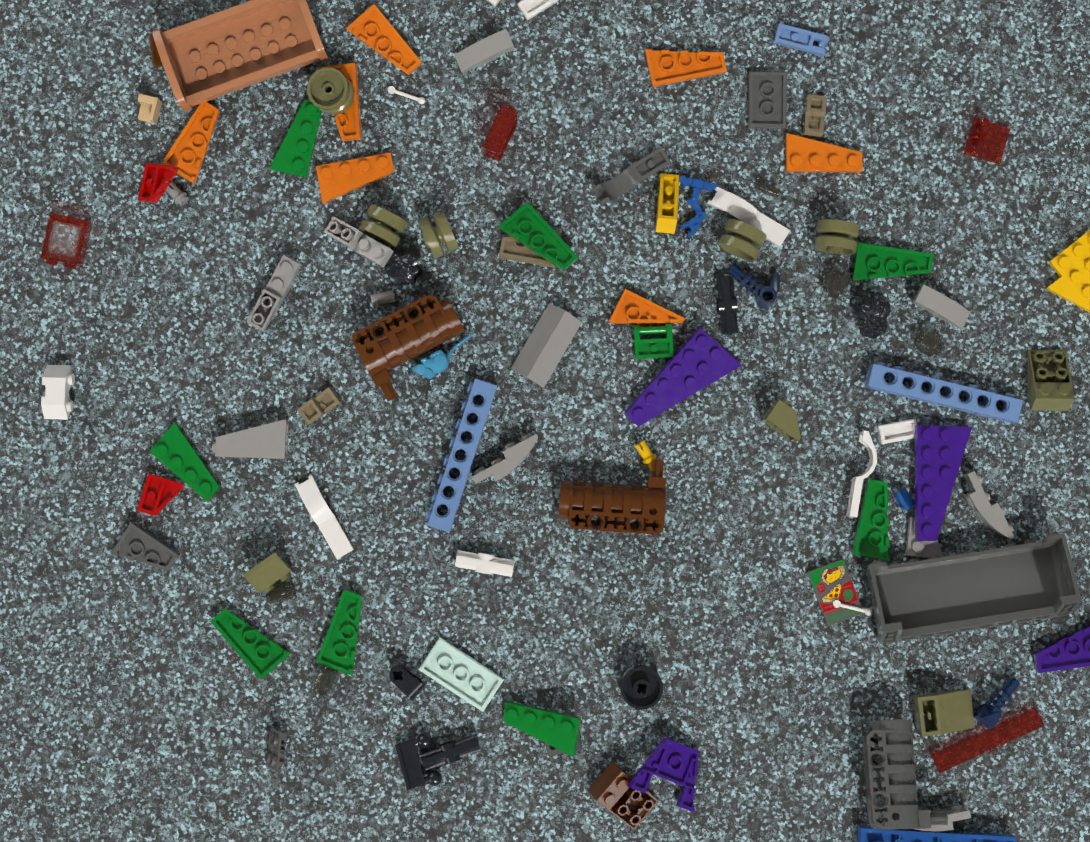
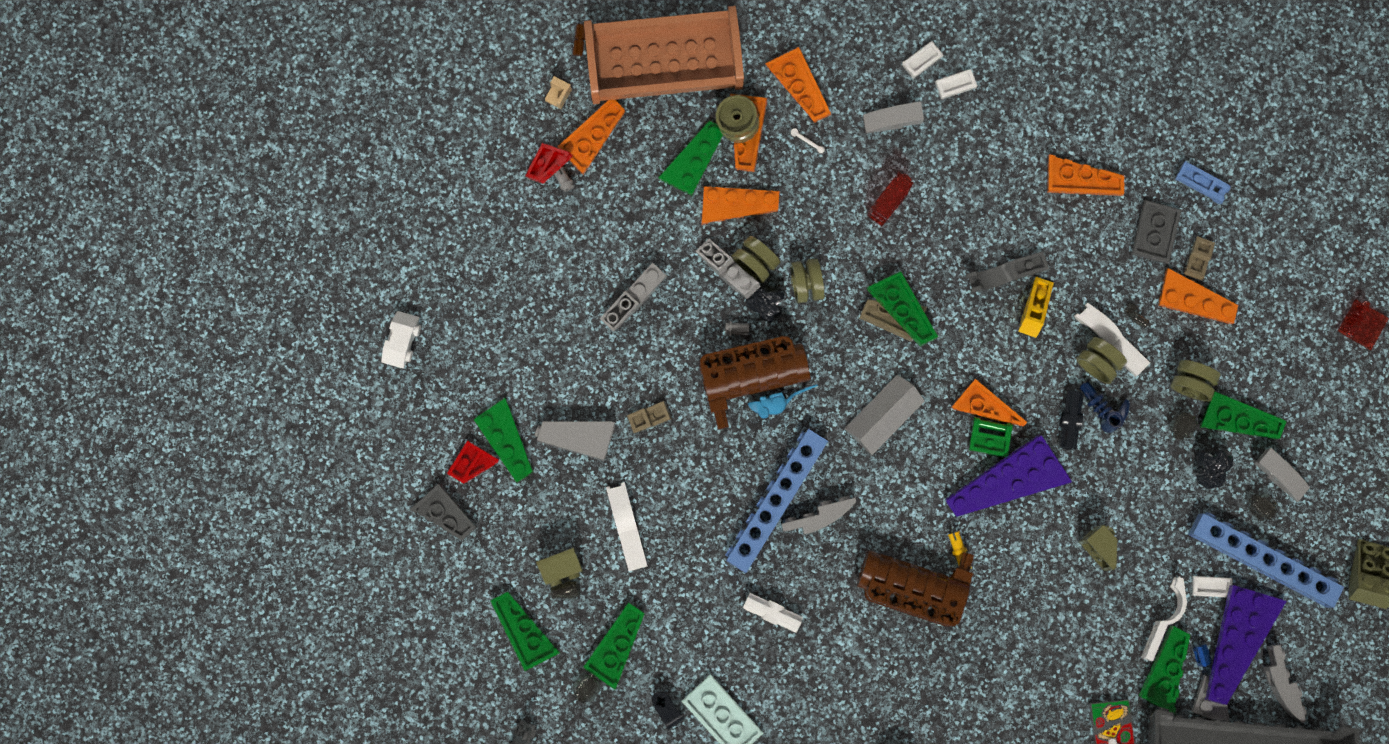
camera: 20 degrees right, 5 degrees down
(66, 241) = (446, 197): clear red window -> none
(697, 184) = (1070, 296): blue piece -> none

